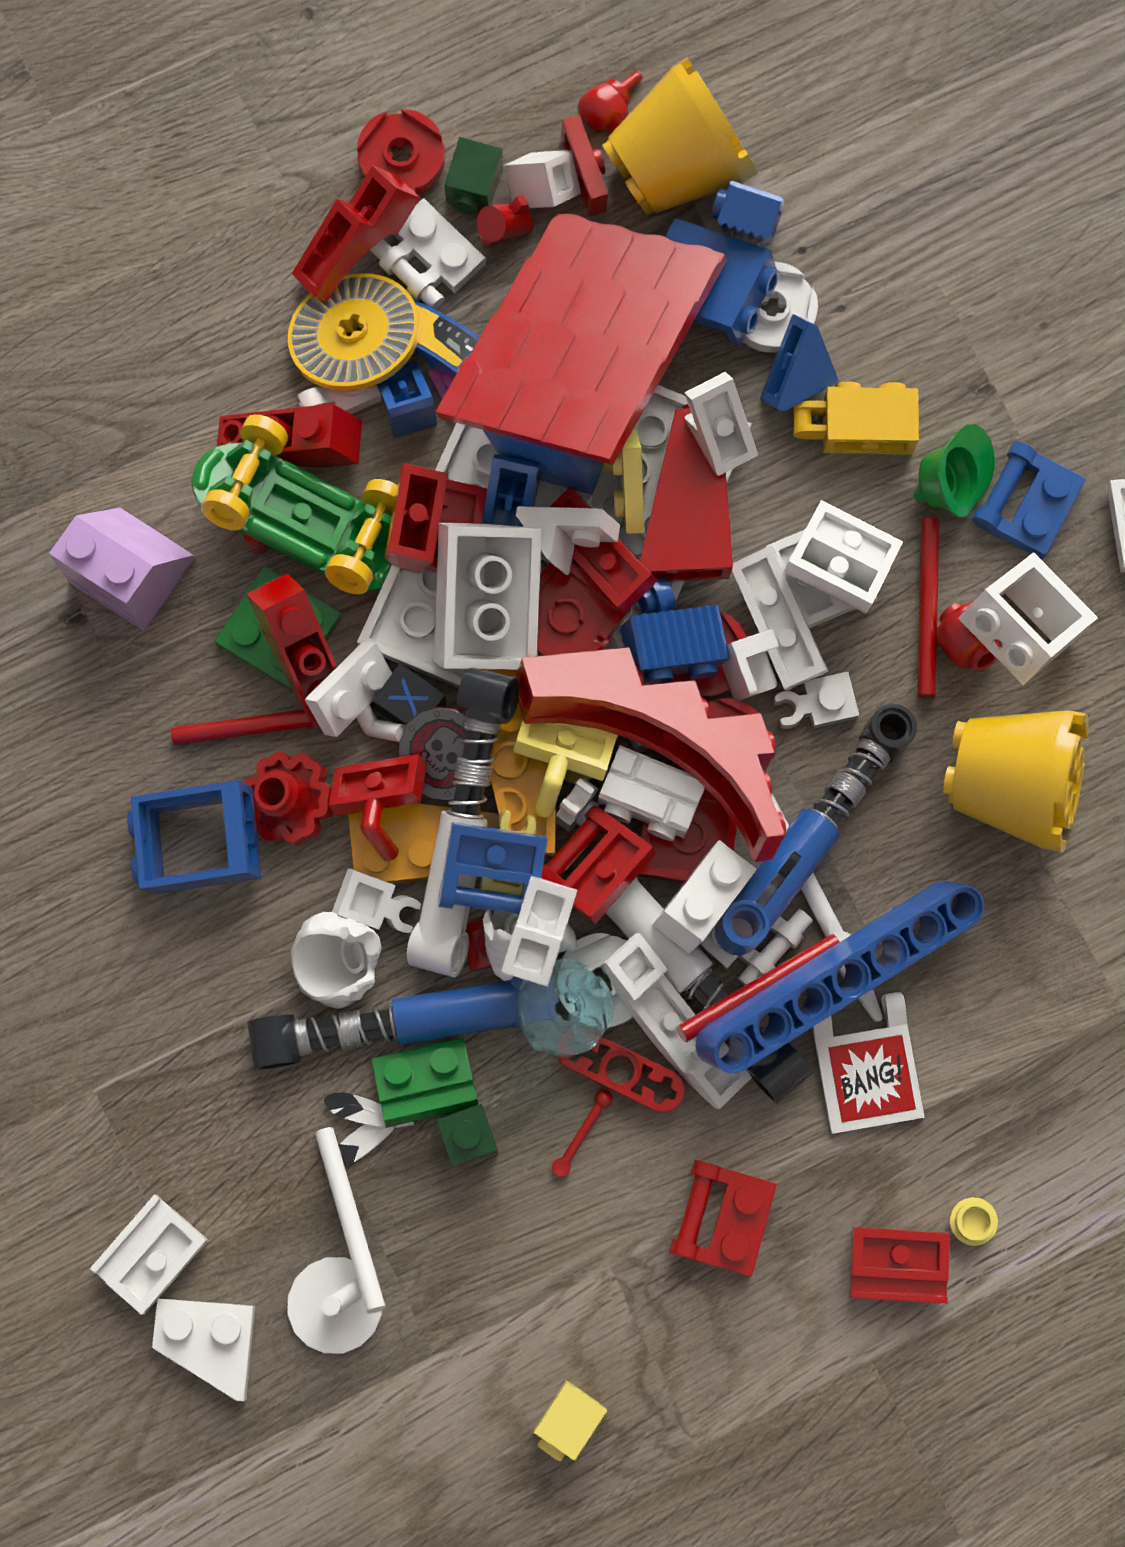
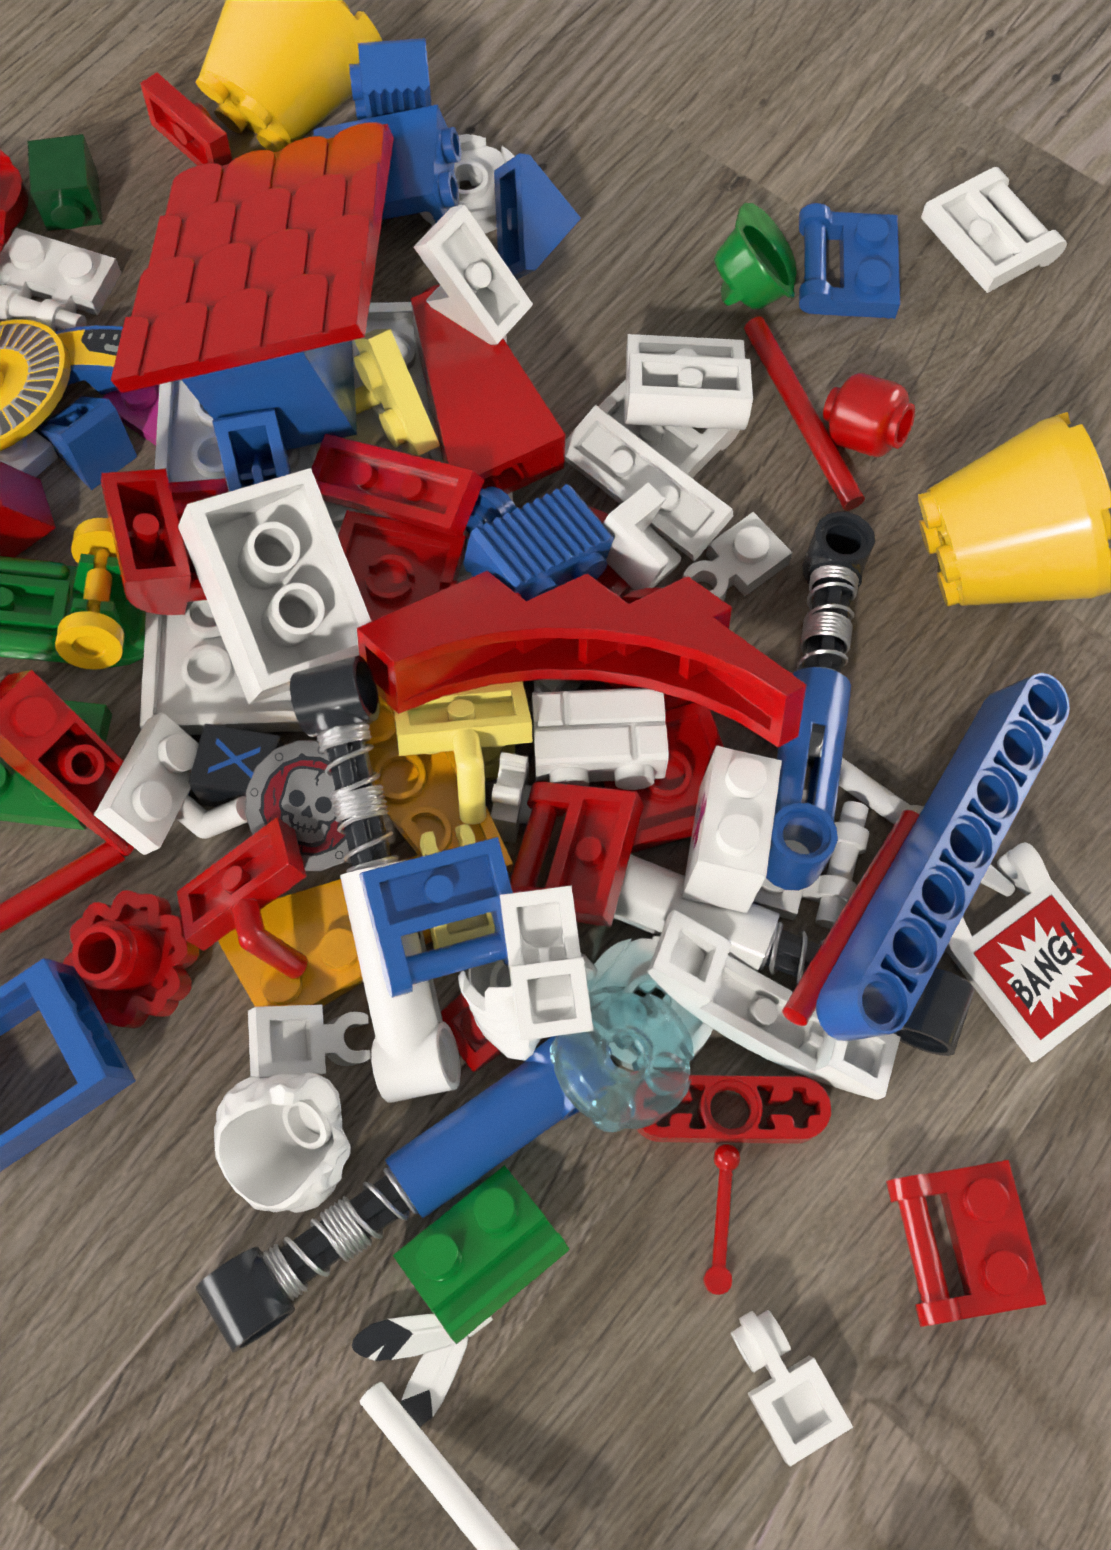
camera: 25 degrees left, 10 degrees down
(467, 1136) = (575, 1299): dark green brick -> none
(504, 221) = (121, 211): red piece -> none
(543, 178) = (145, 157): white panel -> none
(567, 527) = (348, 461): white slope -> none
(569, 1258) = (796, 1400): none -> white plate
(606, 103) = (183, 64): red piece -> none
(862, 419) = (626, 251): yellow brick -> none
(1044, 601) = (932, 349): white window -> none

